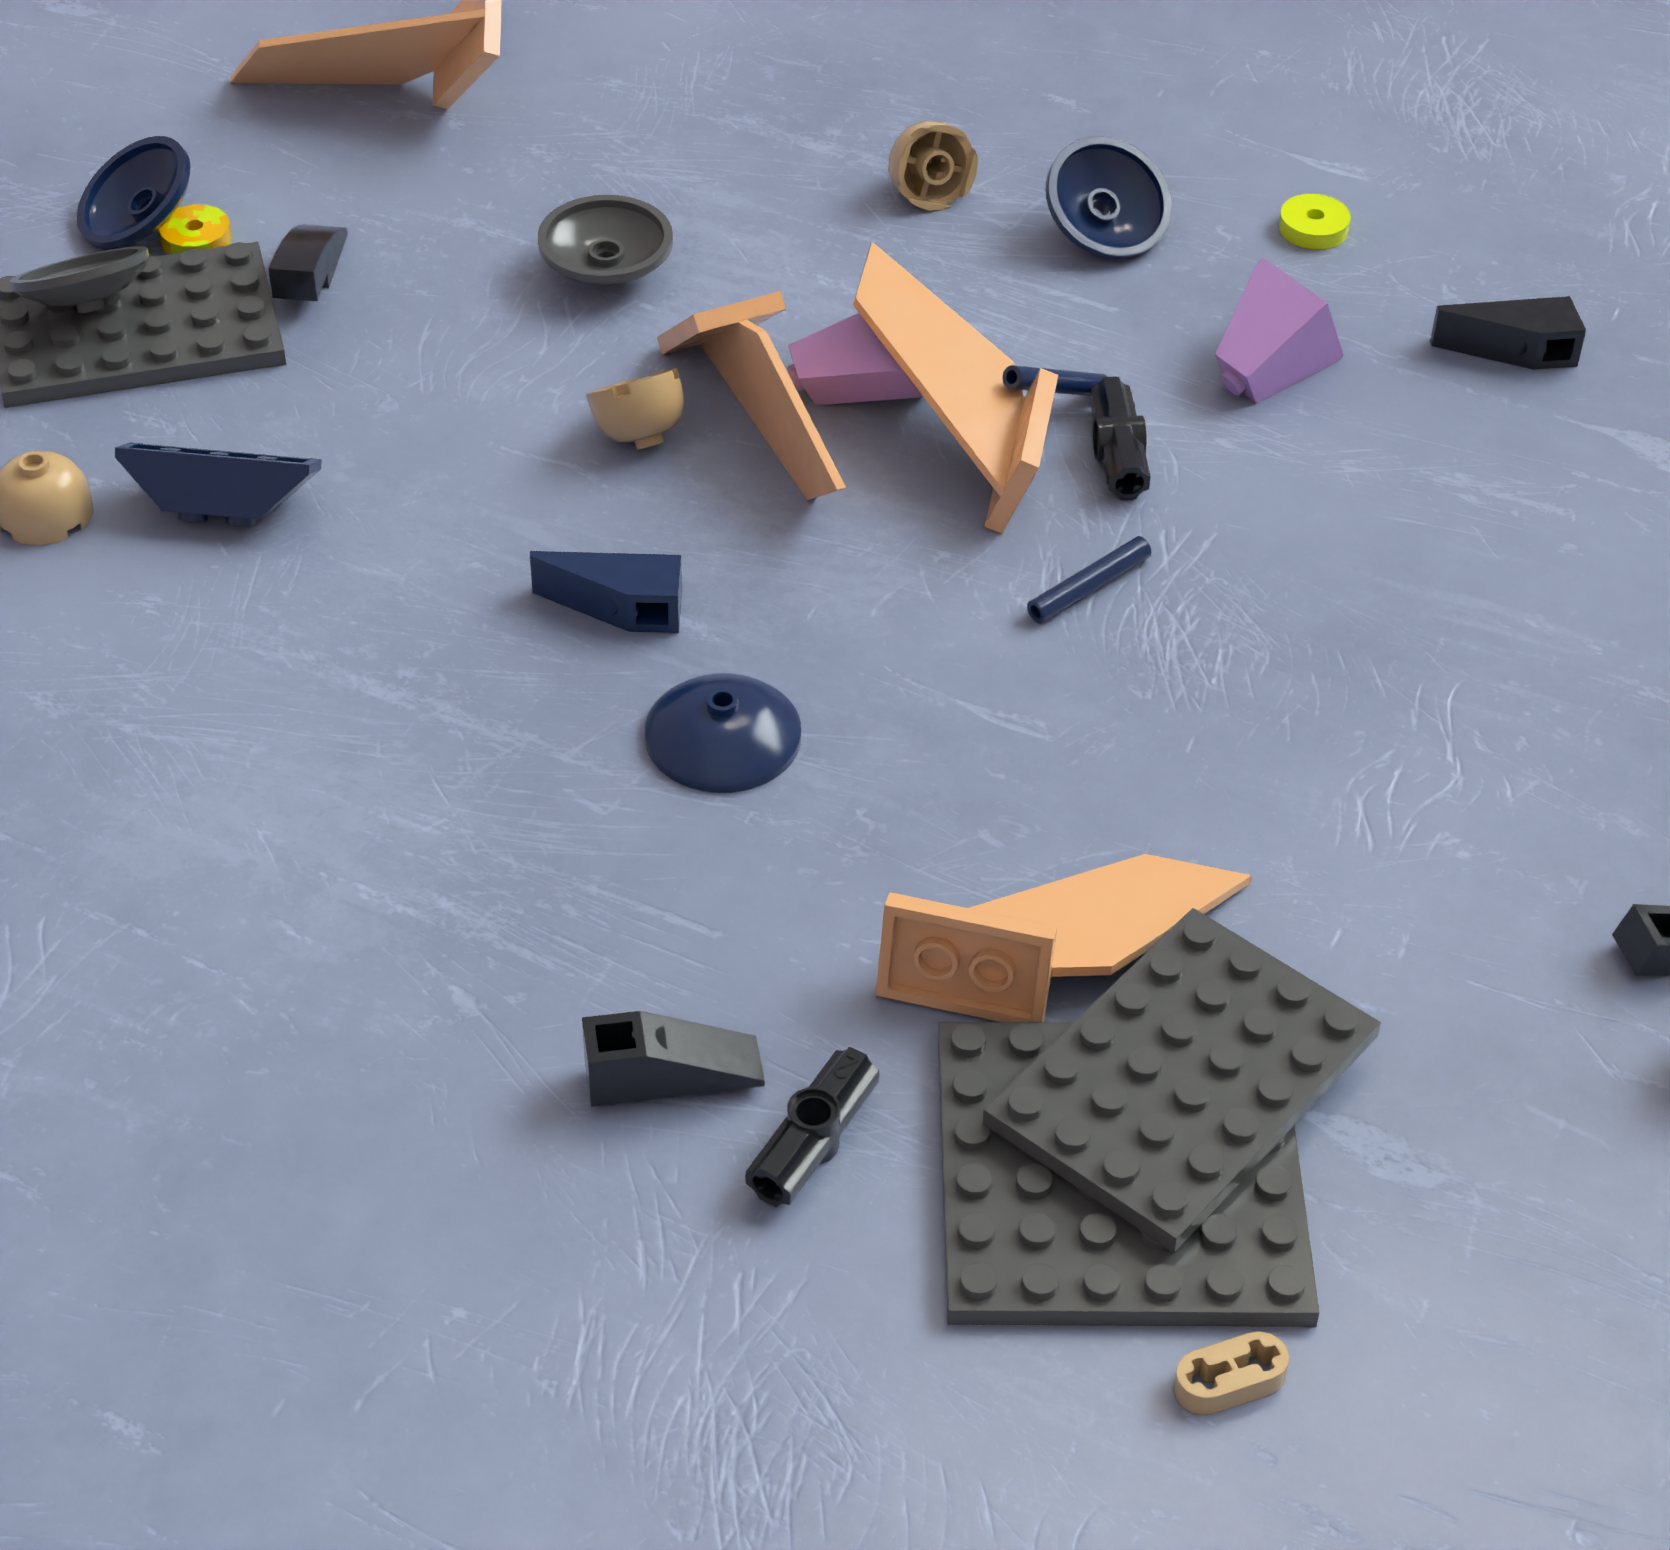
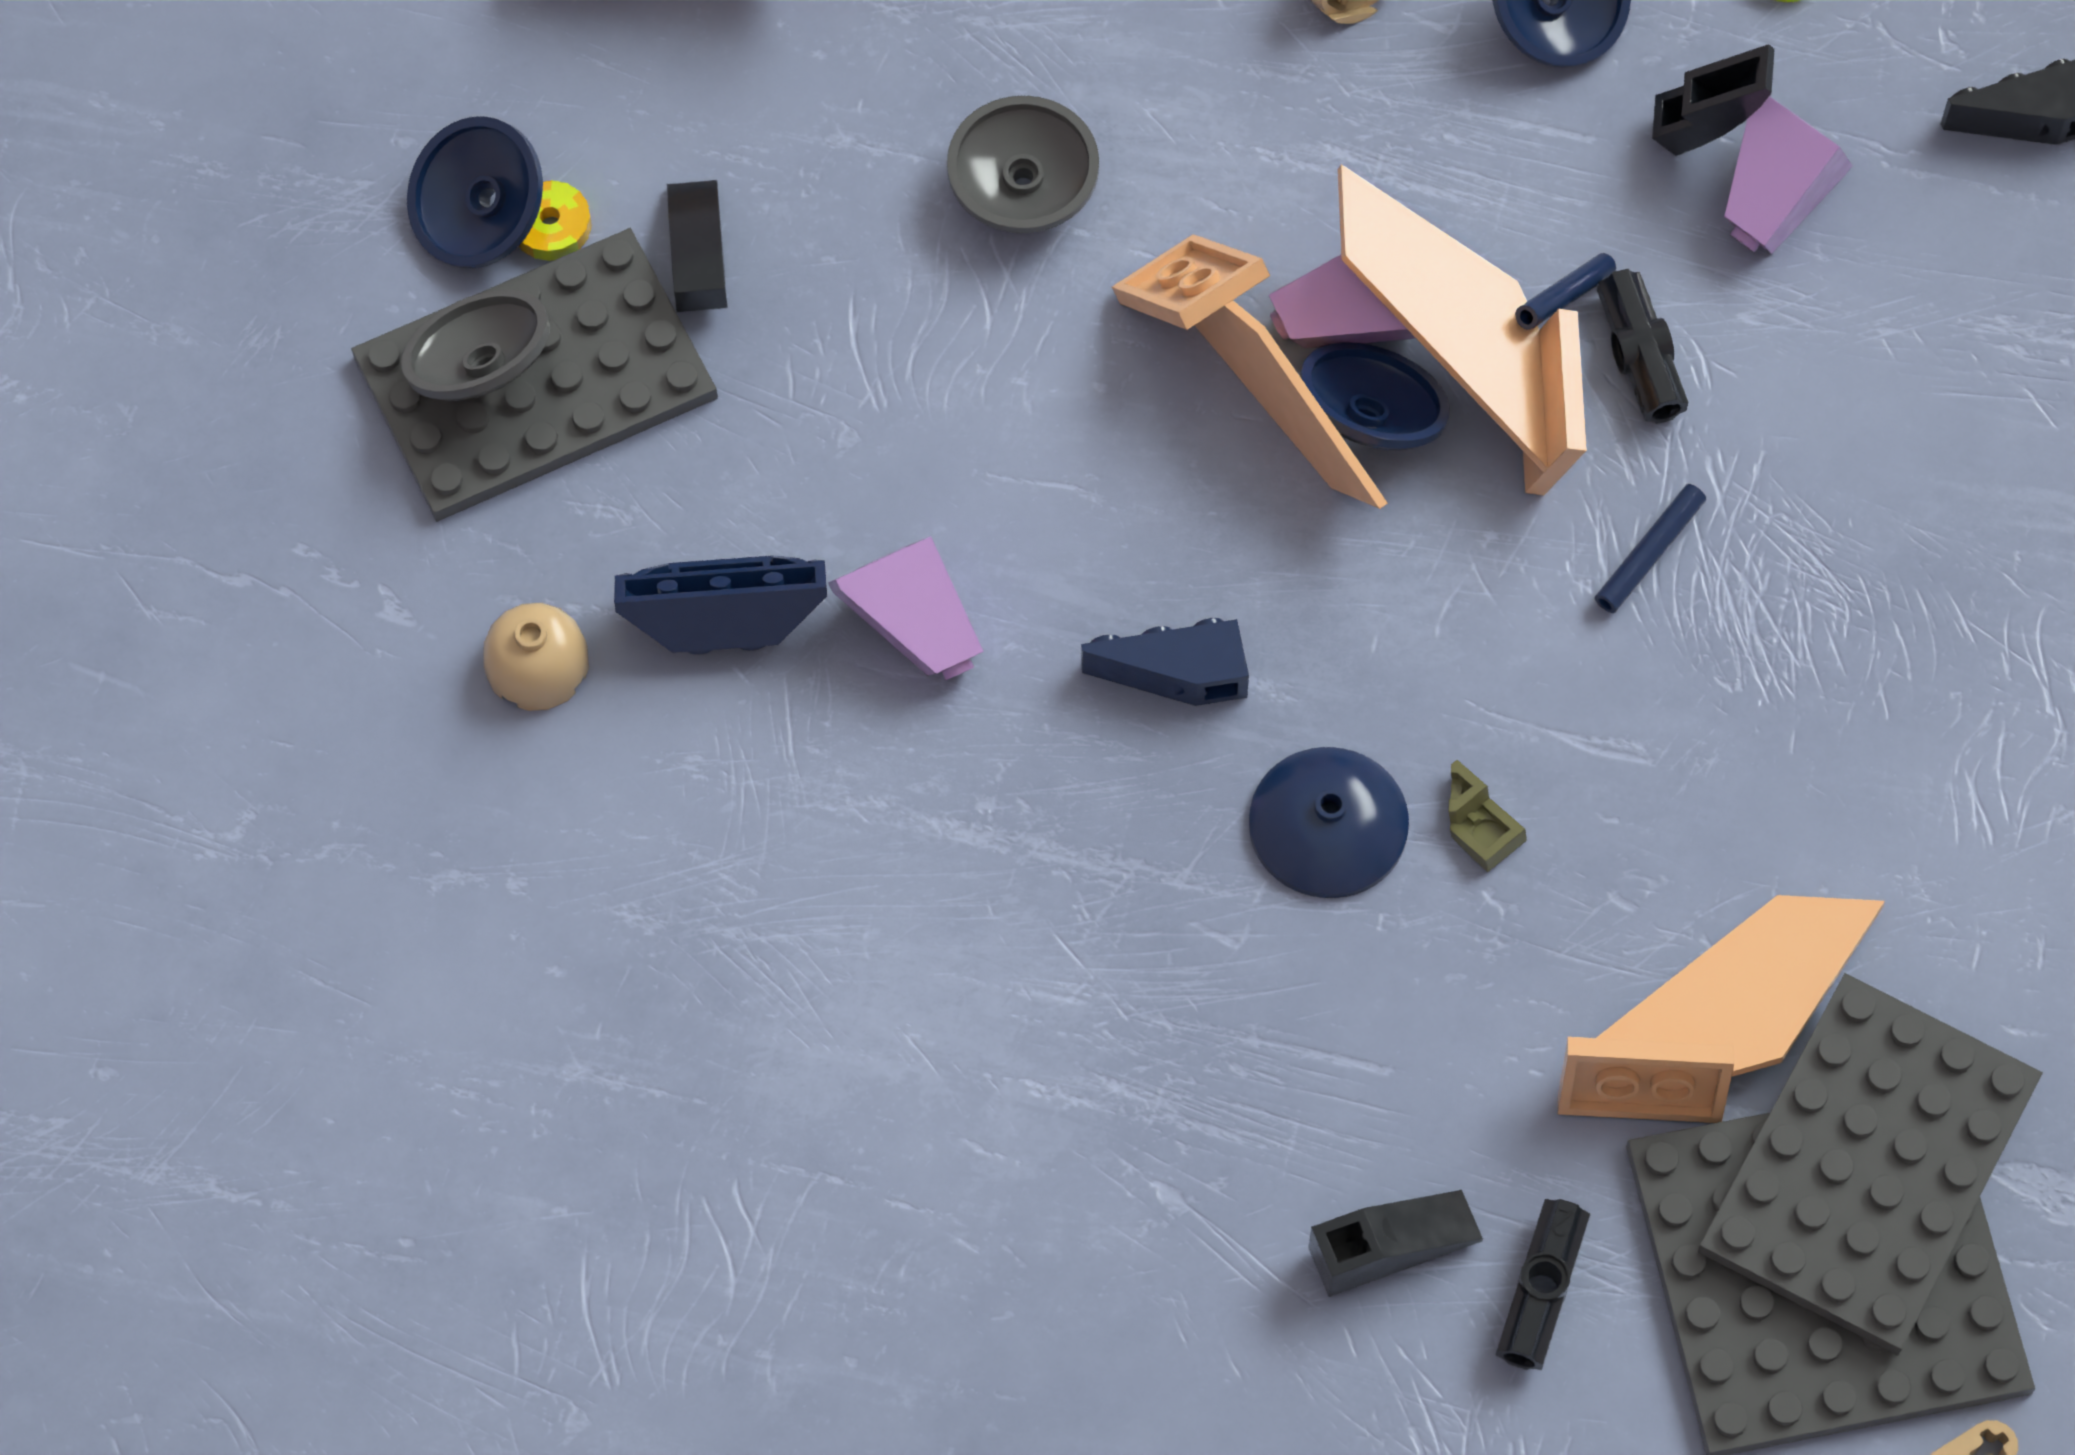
camera: 10 degrees left, 20 degrees up
(385, 501) = (913, 608): none -> lavender slope
(639, 408) = (1129, 409): tan cylinder -> none
(863, 432) = (1376, 395): none -> dark blue dish
(865, 753) = (1478, 822): none -> olive slope
(1220, 270) = (1713, 100): none -> black slope

